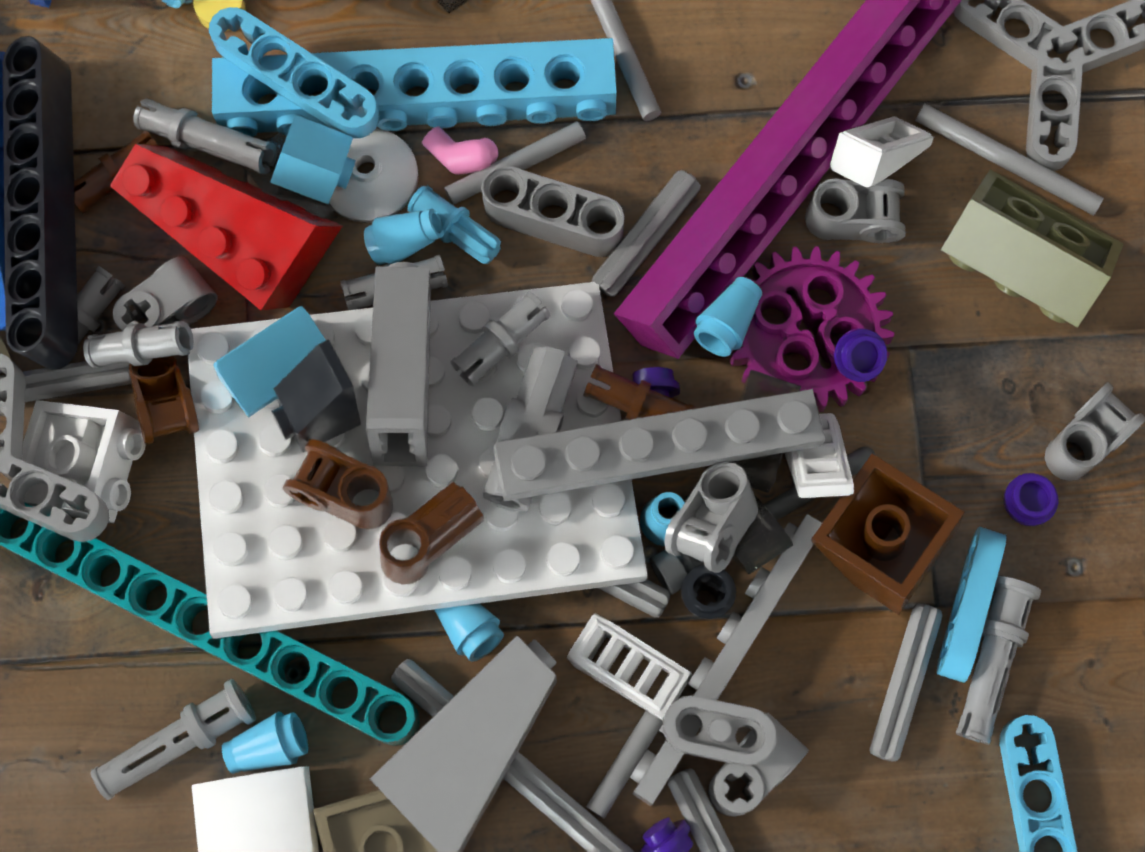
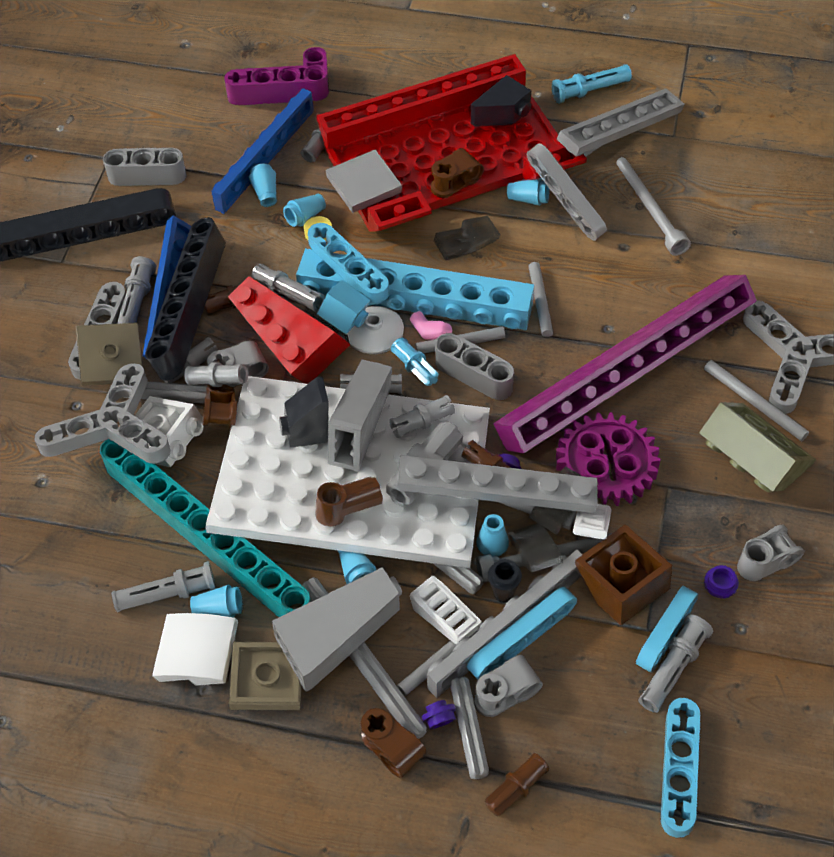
camera: 15 degrees right, 20 degrees down
(266, 359) = (273, 394): medium azure slope -> none
(331, 481) = (305, 464): reddish brown piece -> none
(401, 235) = (386, 355): medium azure cone -> none
(646, 233) = (526, 390): light grey axle -> none
(708, 523) = (518, 532): light grey piece -> none
(718, 730) = (489, 647): light grey plate -> none
(727, 319) = (558, 436): medium azure cone -> none
(771, 647) = (522, 632): none -> medium azure beam
(860, 355) = (633, 472): dark purple plate -> none
(866, 211) = (654, 404): light grey piece -> none
(877, 150) = (673, 372): white slope -> none
(906, 682) = (614, 664): light grey axle -> none

